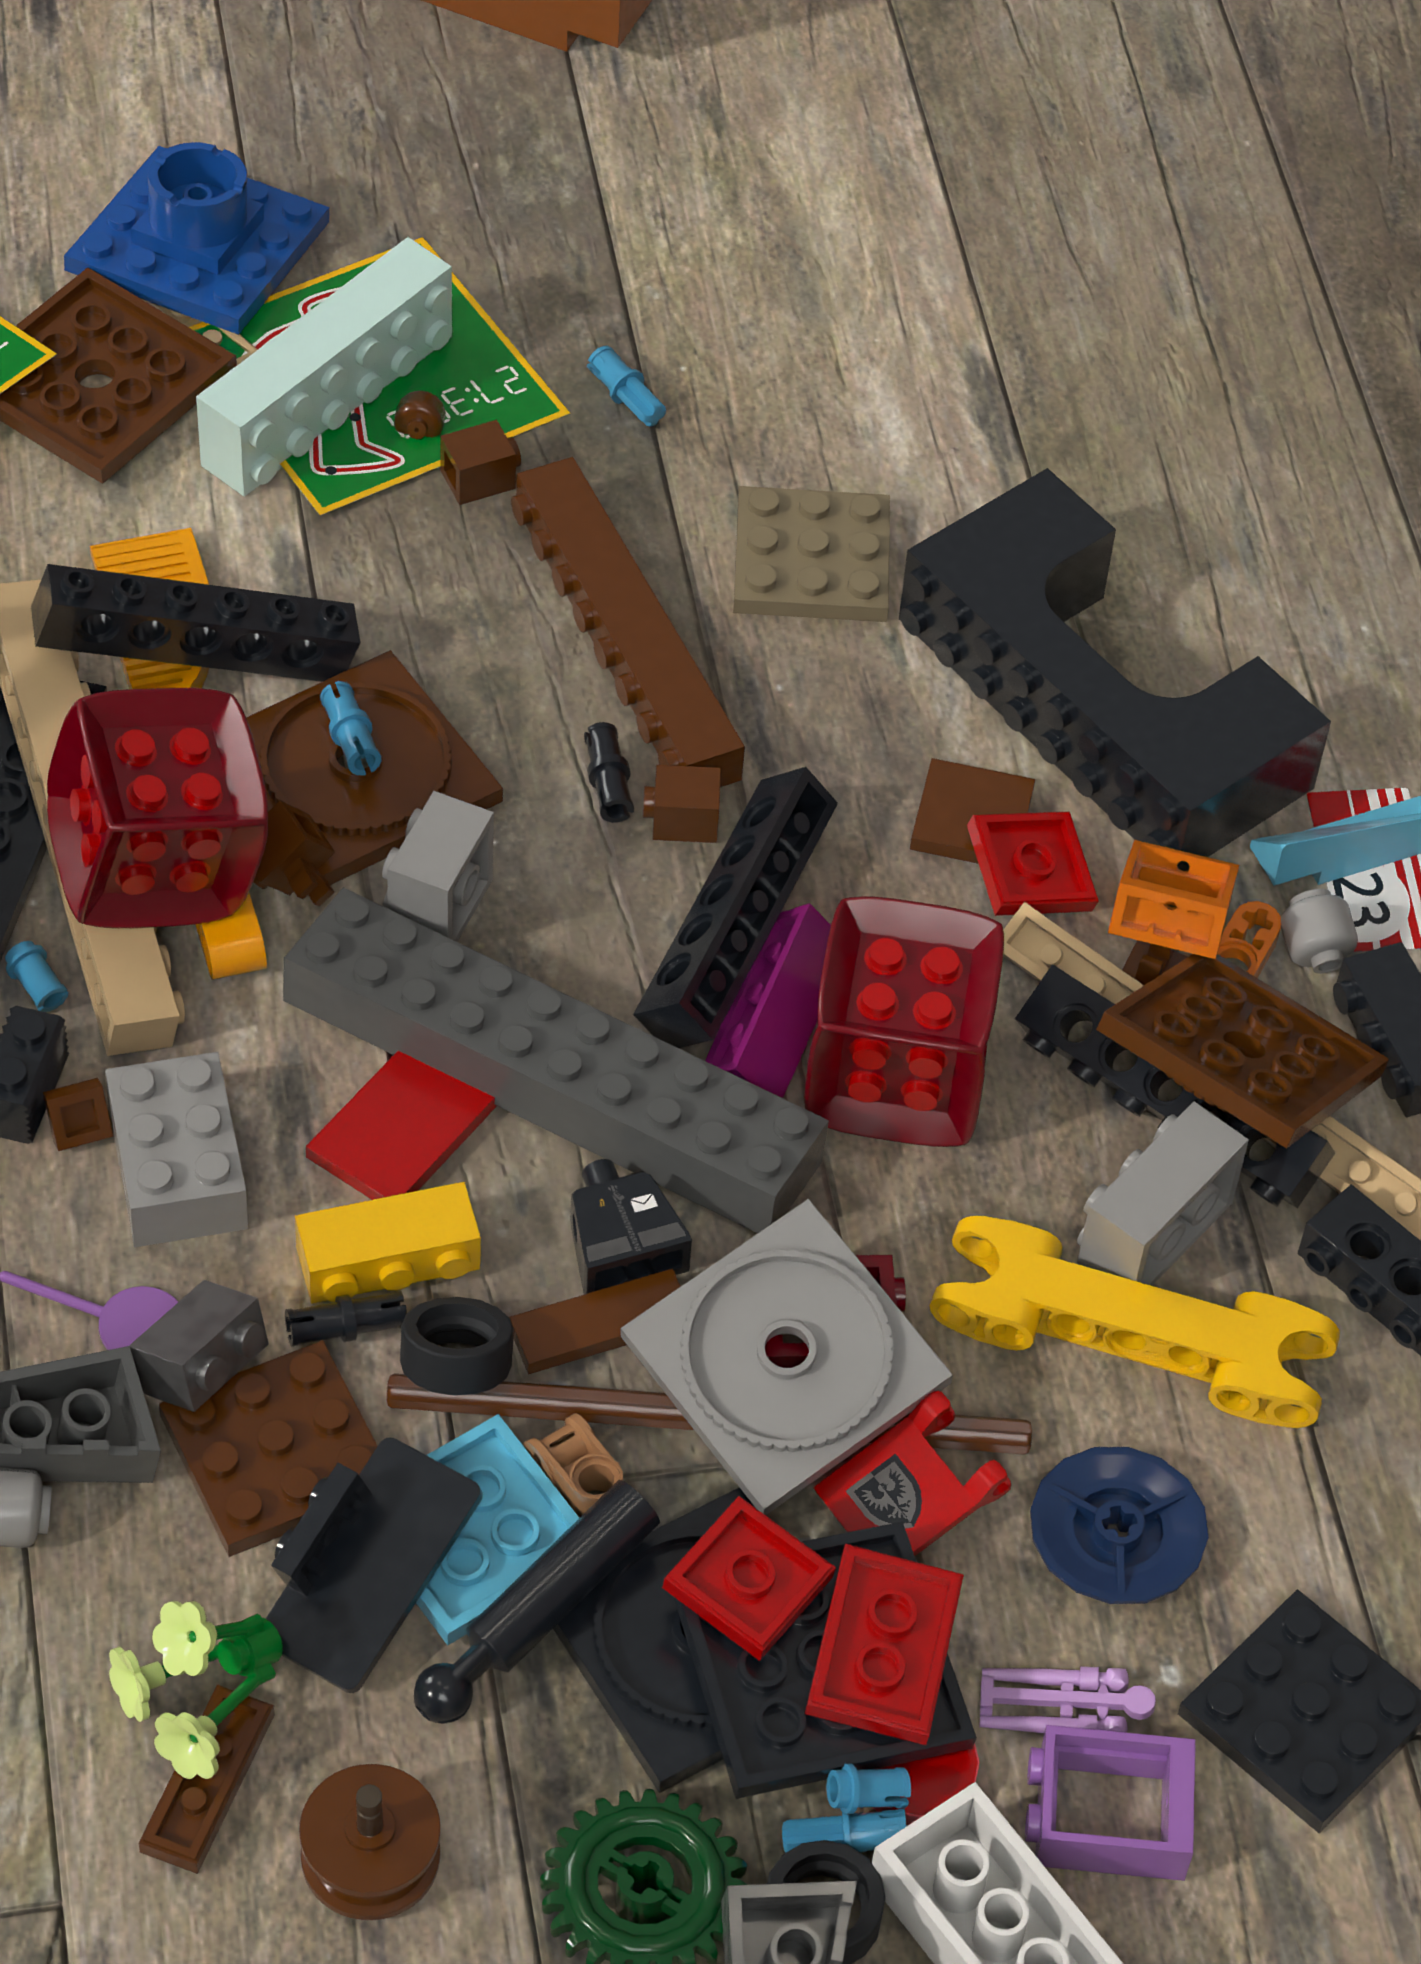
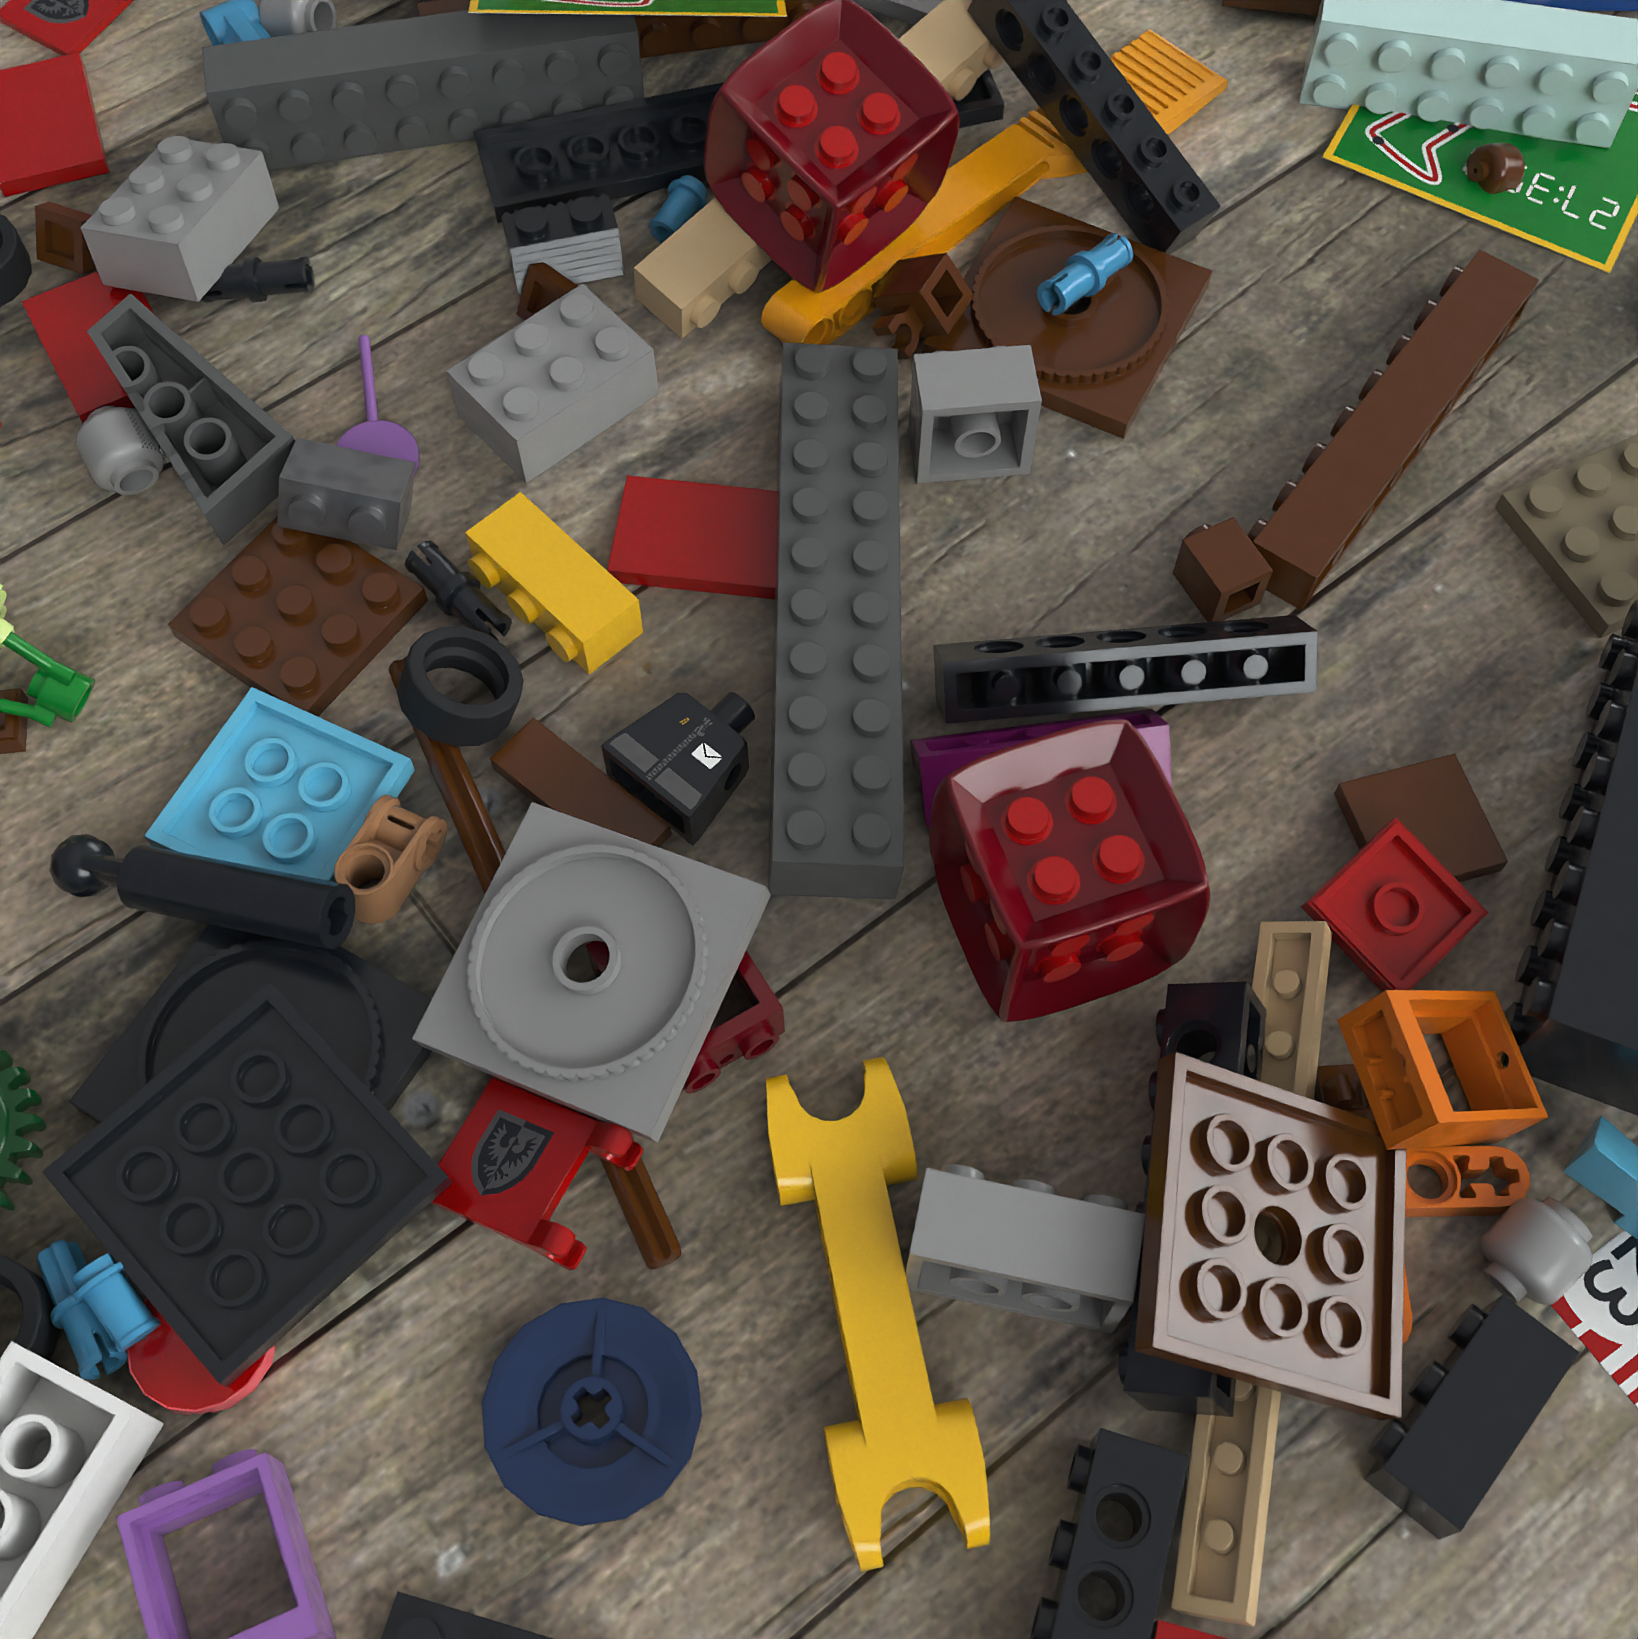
camera: 65 degrees right, 10 degrees up
(365, 1558) = (180, 722): black bracket -> none
(479, 461) = (1478, 220): reddish brown brick -> none
(608, 772) = (1211, 495): black pin -> none
(749, 1578) = (286, 1058): red tile -> none
(885, 1644) = (275, 1232): red tile -> none
(1136, 1701) = (374, 1540): lavender piece -> none

